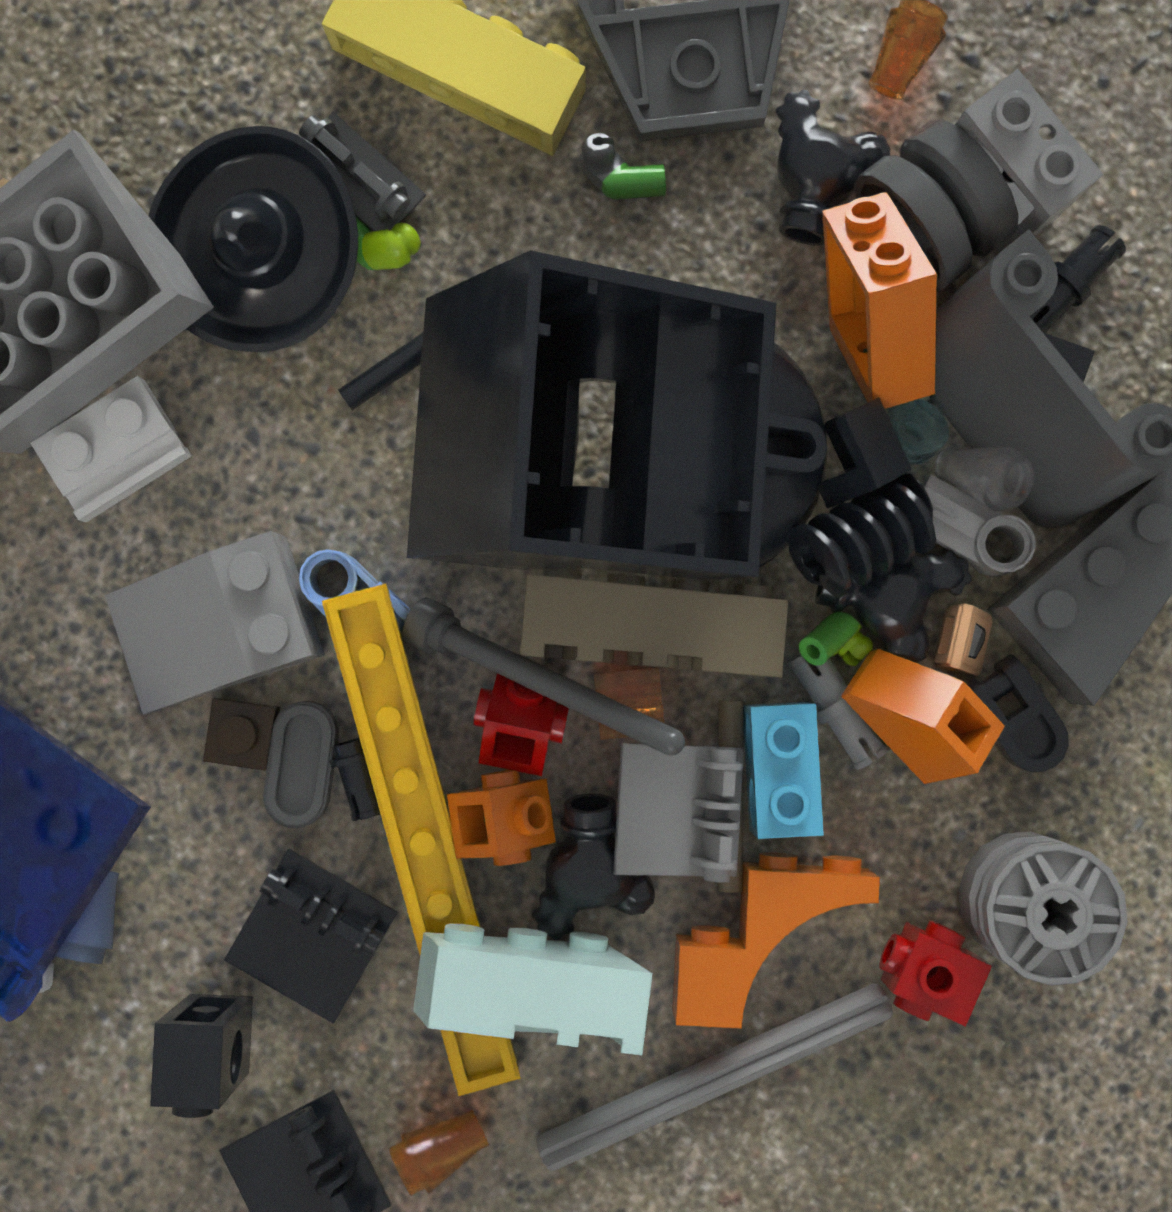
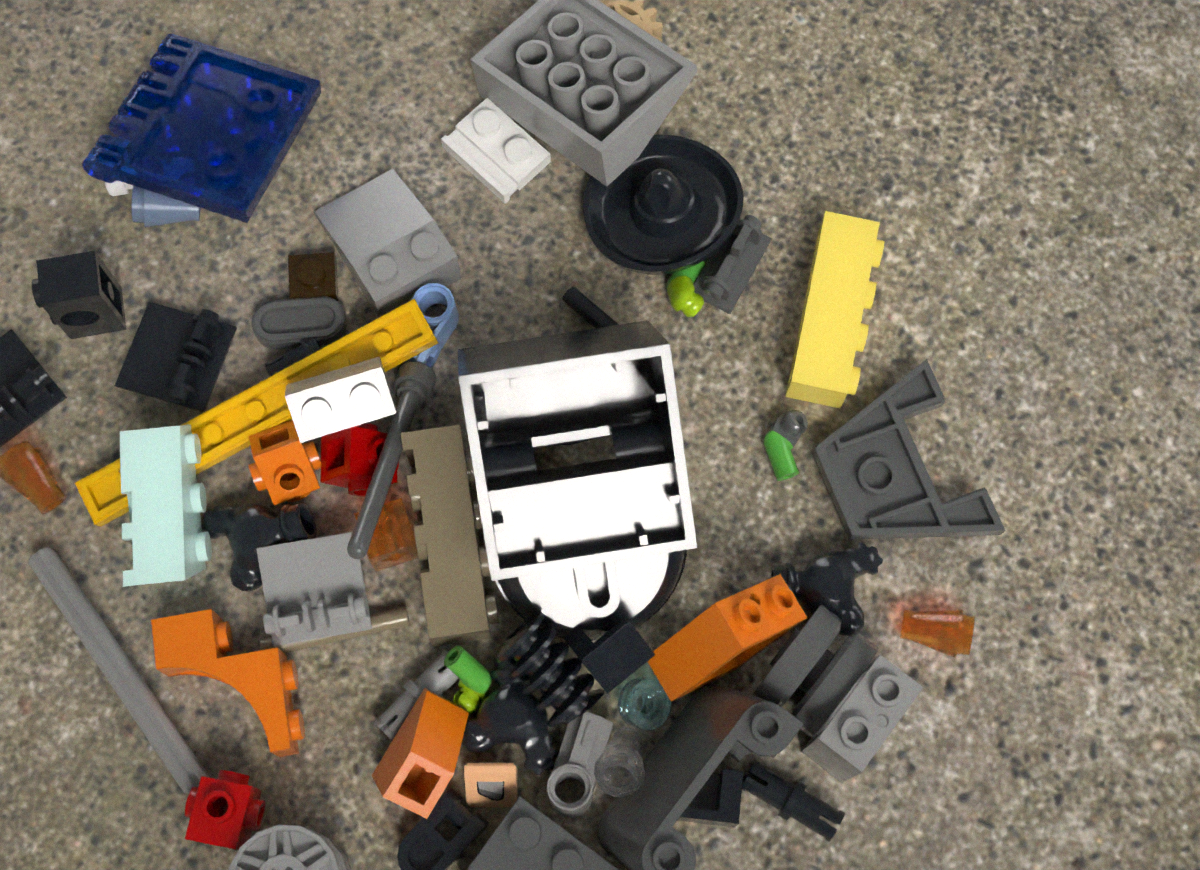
camera: 75 degrees right, 15 degrees down
(445, 727) = (339, 399): none -> brick
(783, 770) = (360, 660): medium azure brick -> none

